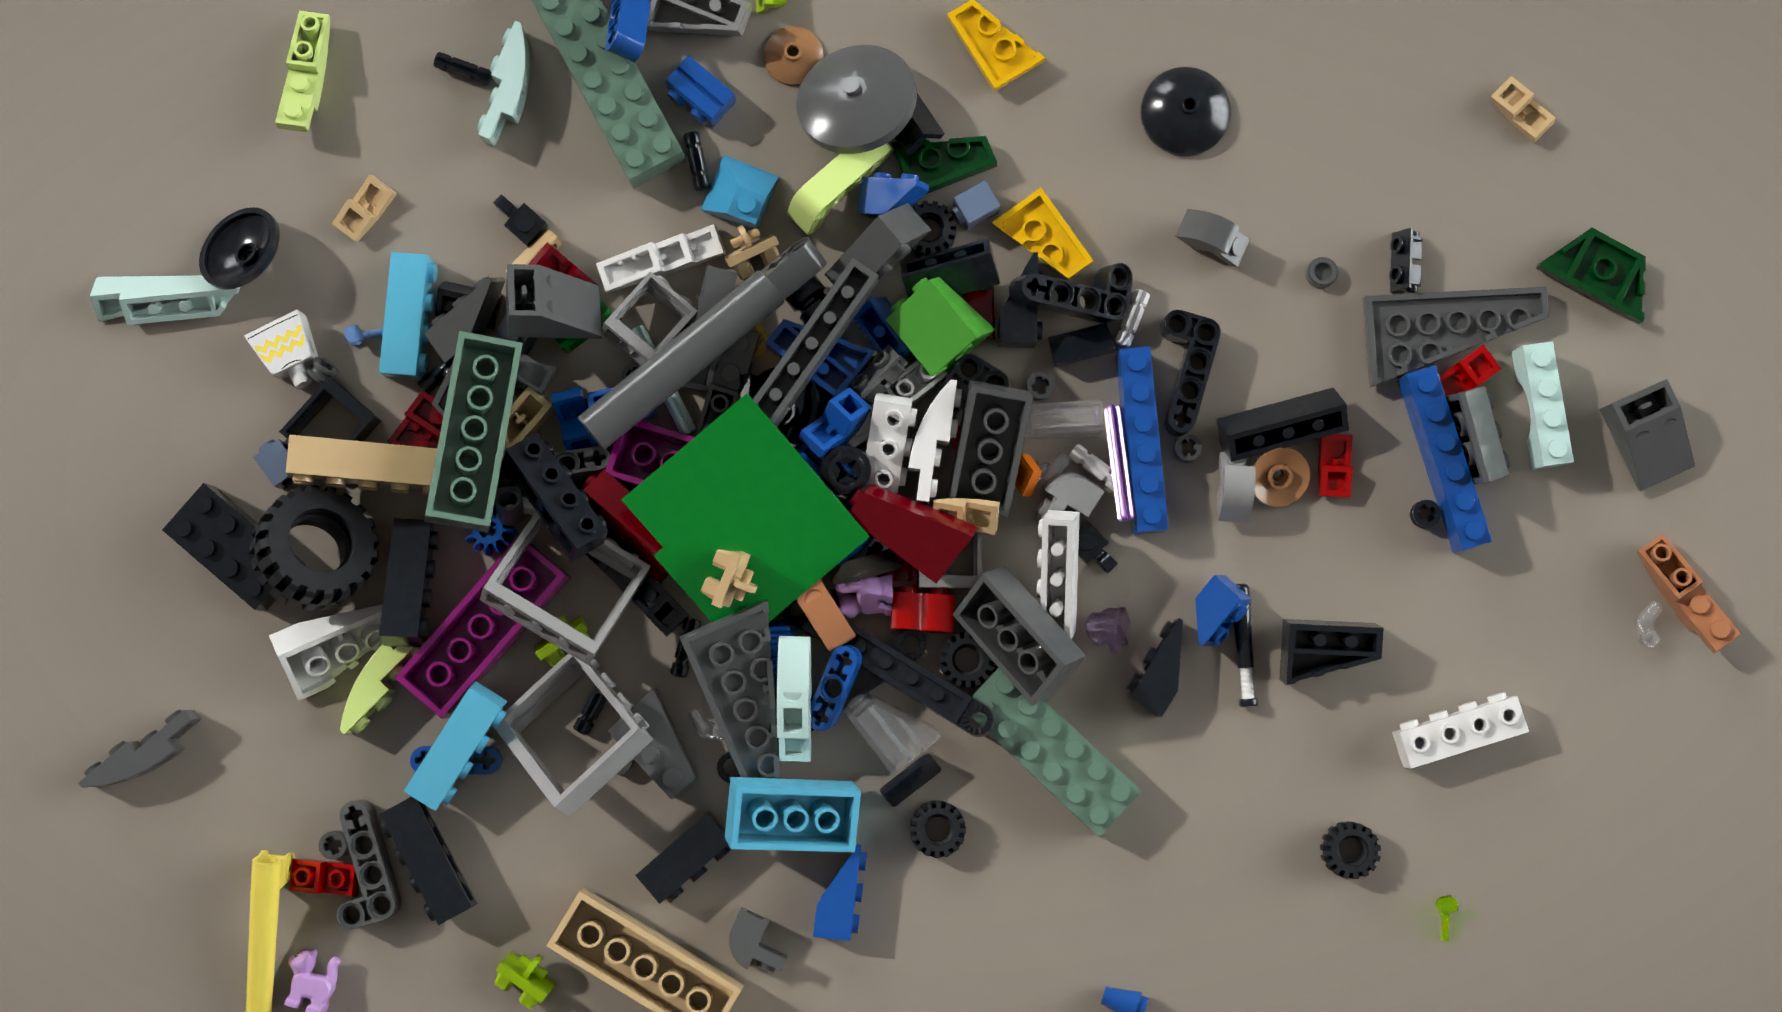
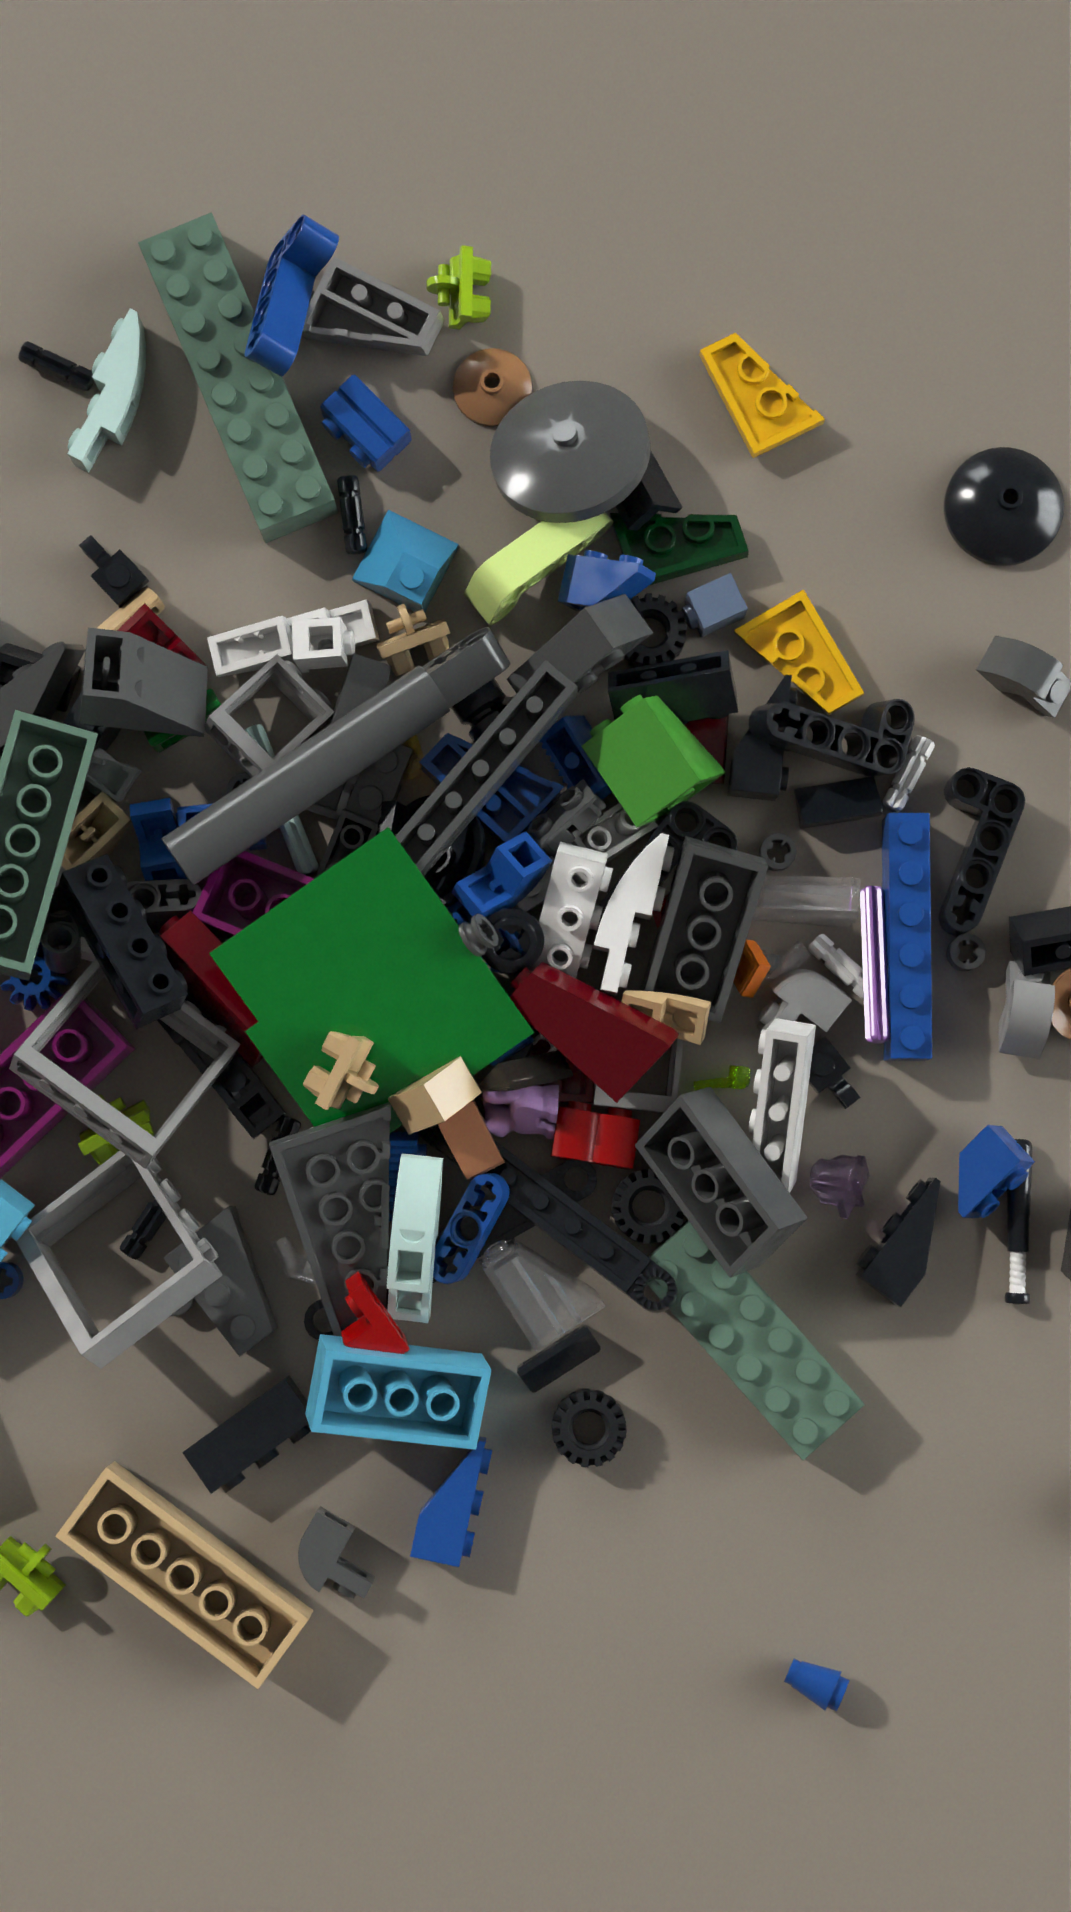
camera: 10 degrees right, 0 degrees up
(675, 255) = (312, 635): none -> white brick
(772, 768) = (377, 1327): none -> red slope
(800, 591) = (435, 1096): none -> tan slope
(821, 467) = (478, 935): none -> dark grey bush
(1025, 558) = (737, 1078): none -> clear neon green hand

